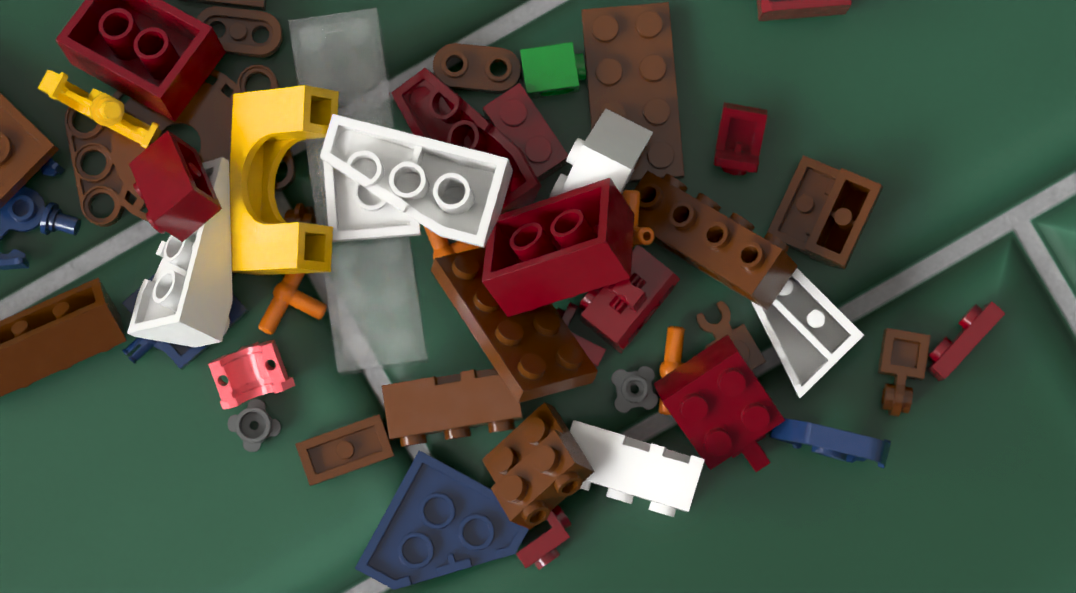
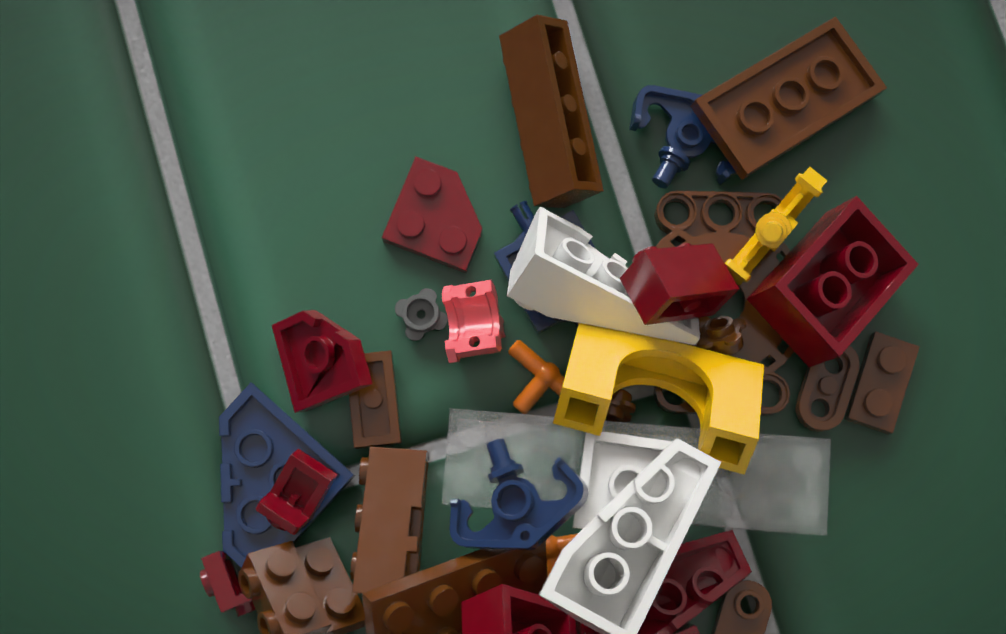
camera: 100 degrees right, 5 degrees down
(156, 435) = (434, 217): none -> dark red plate
(213, 137) = (722, 335): none -> reddish brown plate
(319, 508) = (319, 359): none -> dark red plate
(417, 284) = (519, 513): none -> dark blue piece
(446, 494) = (296, 493): none -> dark red bracket

